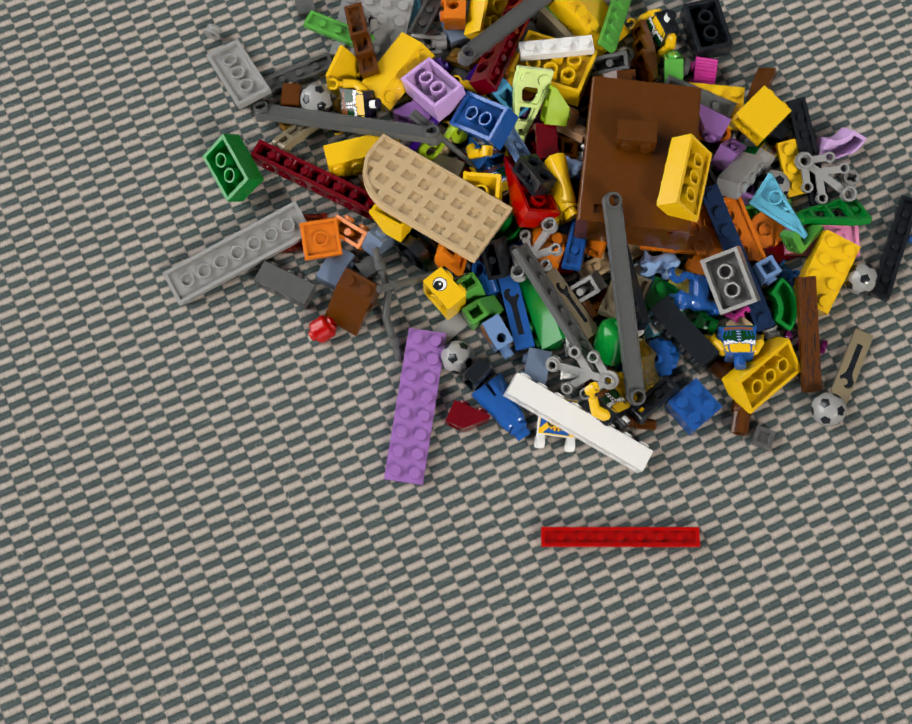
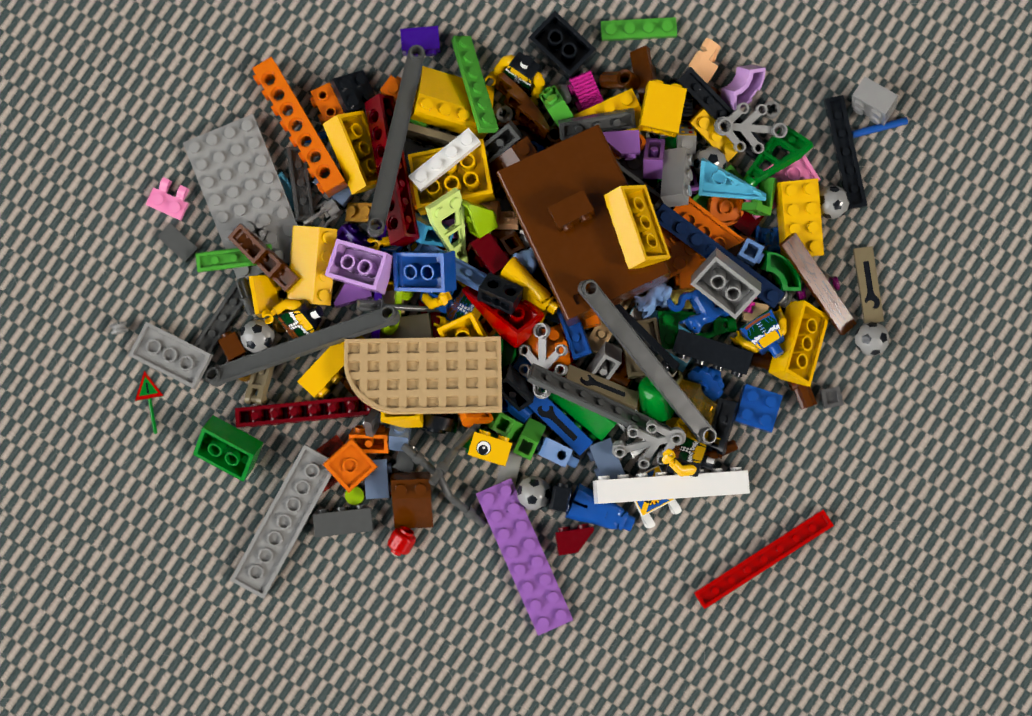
camera: 30 degrees left, 10 degrees up
(202, 92) = (147, 391): none -> piece
(309, 270) = (355, 497): none -> lime tile
(330, 53) = (245, 295): none -> dark grey axle
(361, 216) = (371, 423): none -> flat silver plate
(737, 79) = (619, 79): none -> reddish brown piece
(776, 56) = (638, 29): none -> bright green plate
(818, 108) = (704, 61): none -> light nougat plate

